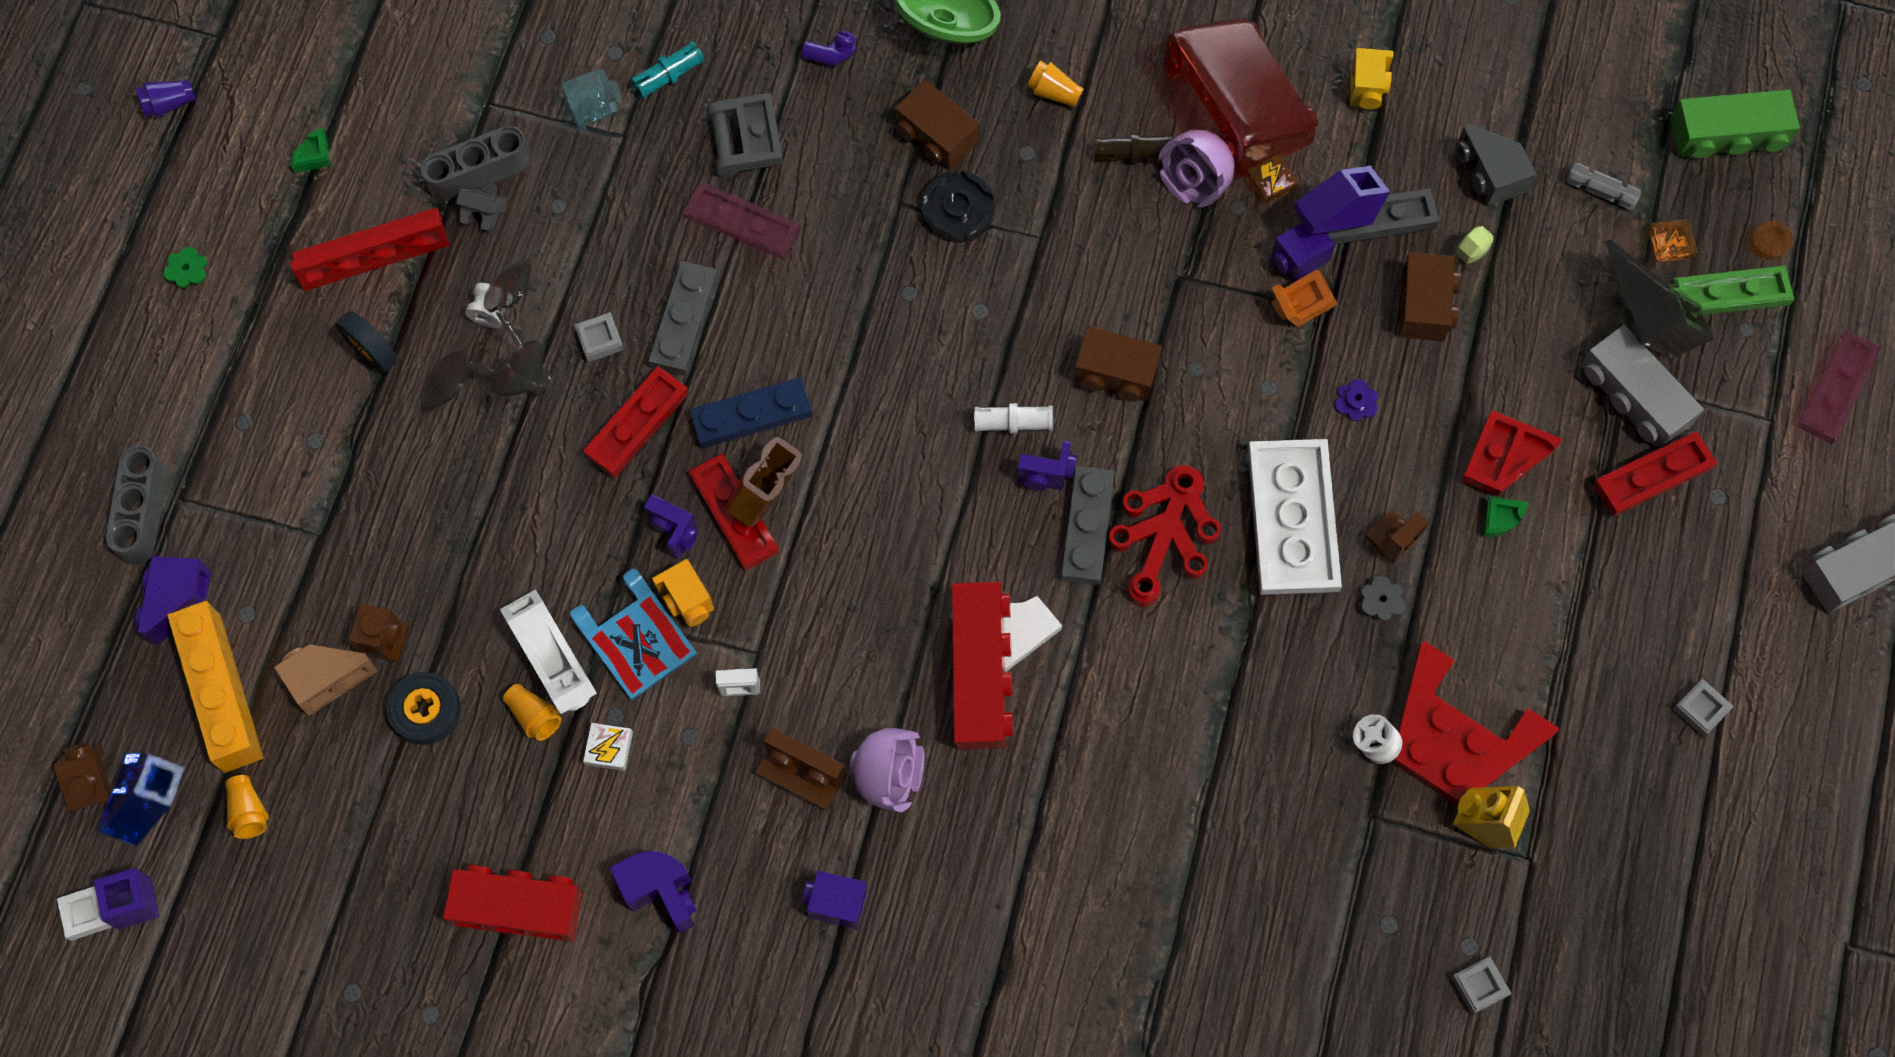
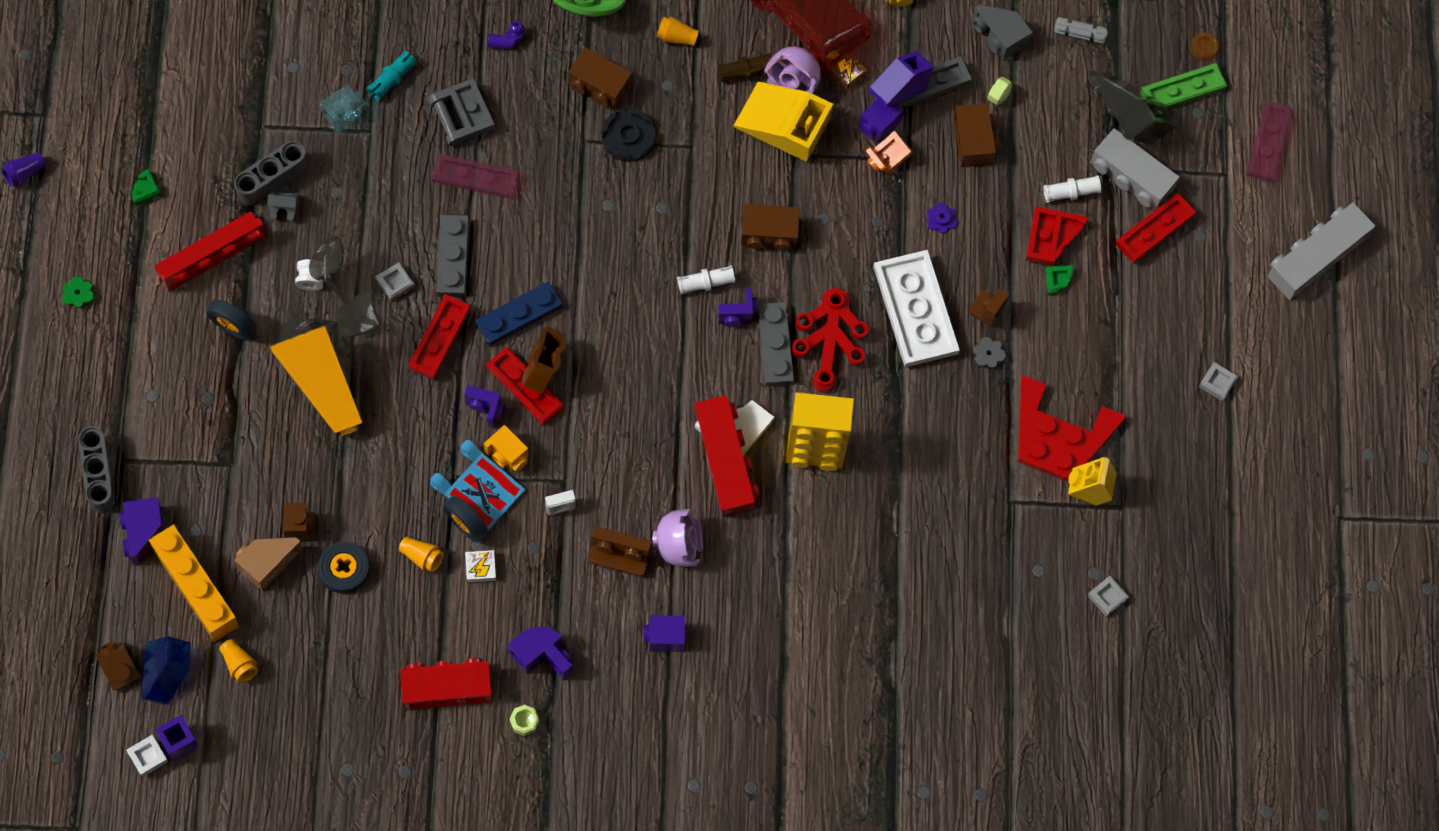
camera: 20 degrees left, 0 degrees up
(456, 441) = (318, 374): none -> light orange slope
(548, 652) = (423, 511): white arch -> none
(600, 677) = (465, 518): none -> black bush
(609, 979) = (524, 720): none -> yellowish green tile
(1114, 659) = (819, 431): none -> yellow brick
(1173, 225) = (785, 118): none -> yellow slope
(1373, 730) = (1005, 441): white wheel -> none
(1548, 396) = (1072, 189): none -> white pin
(1673, 240) = (1136, 60): clear orange tile -> none

